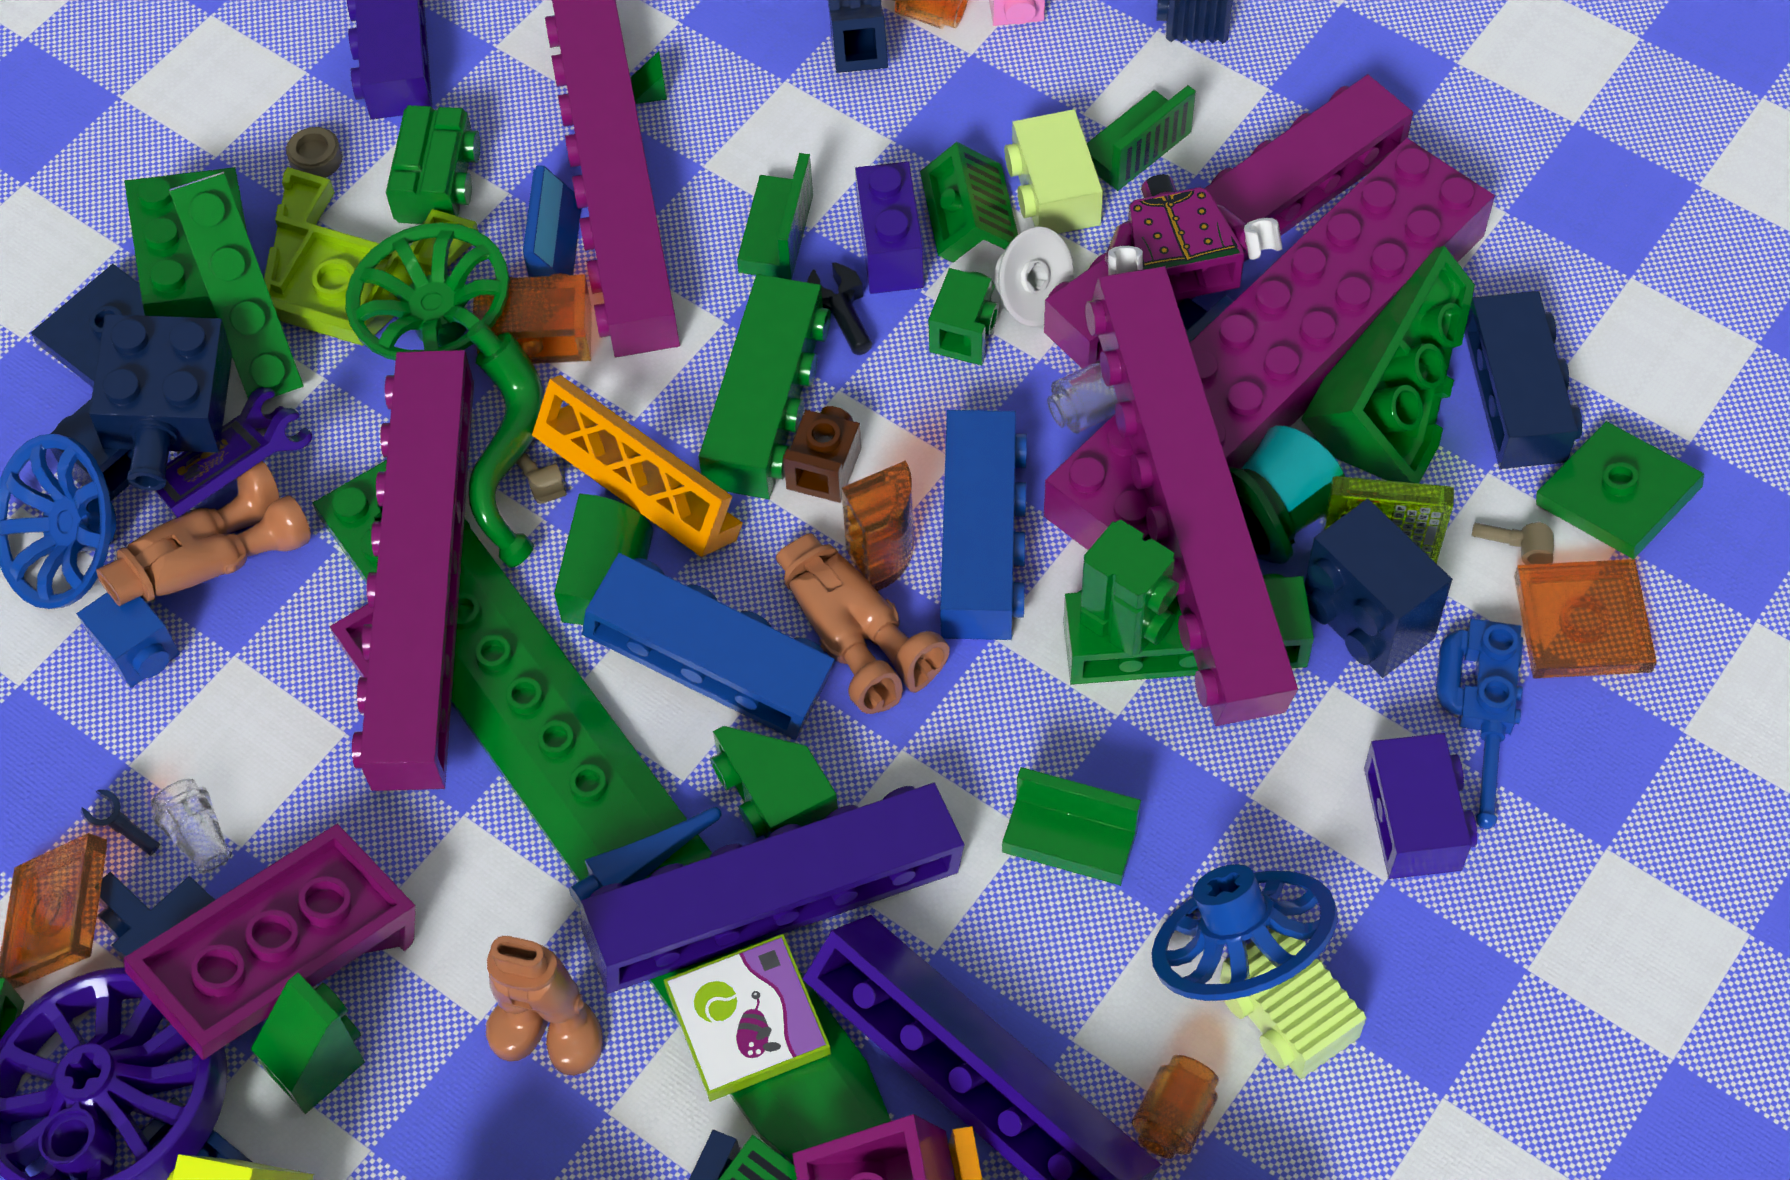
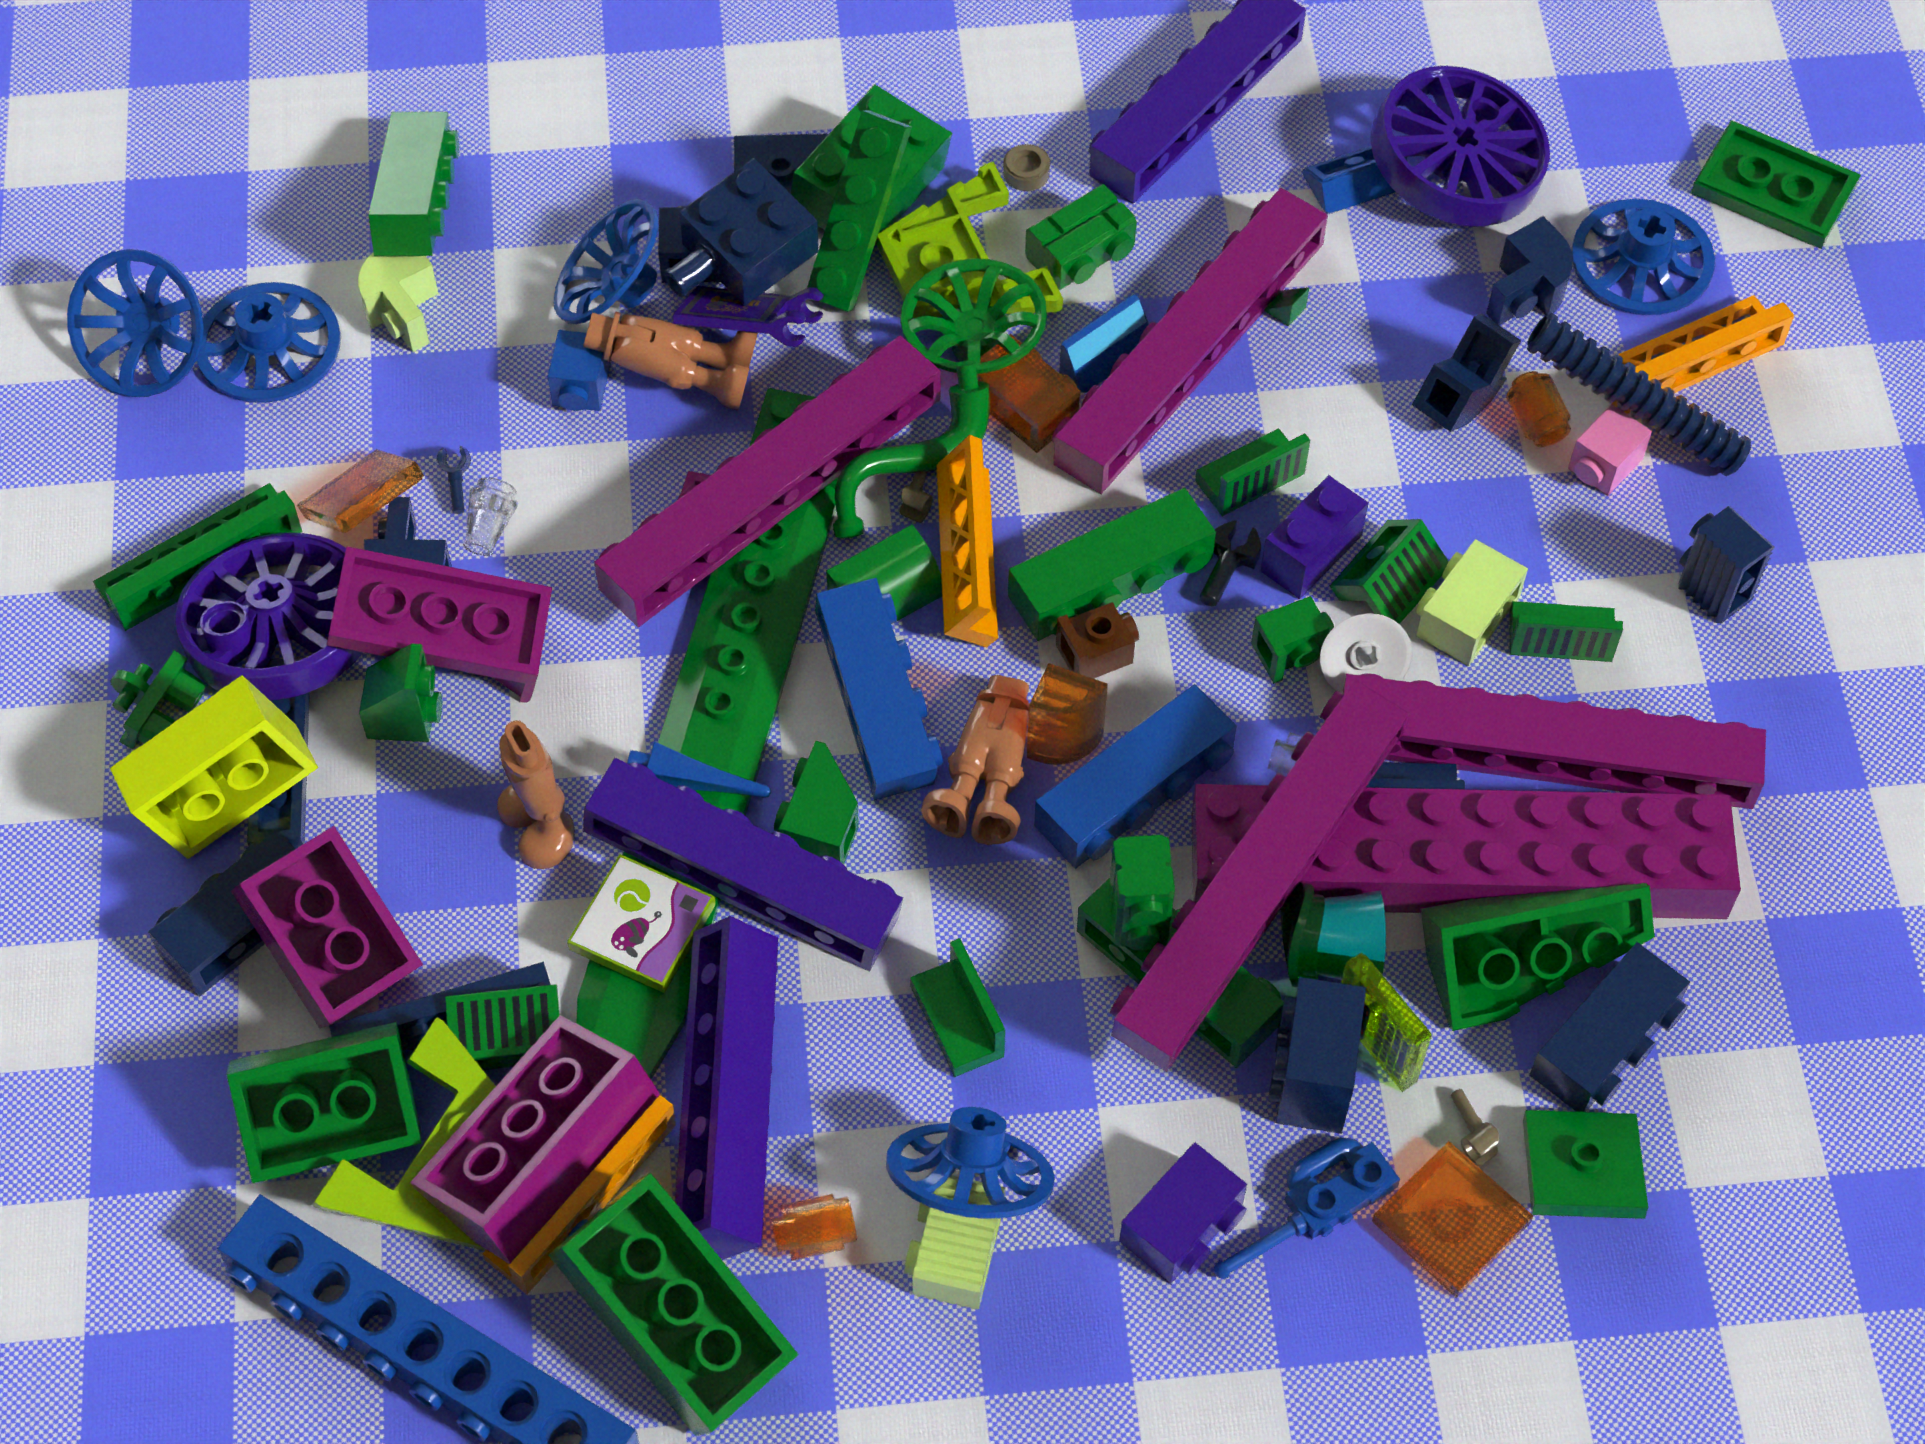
camera: 45 degrees right, 0 degrees up
(1190, 237) = (1465, 715): magenta torso -> none

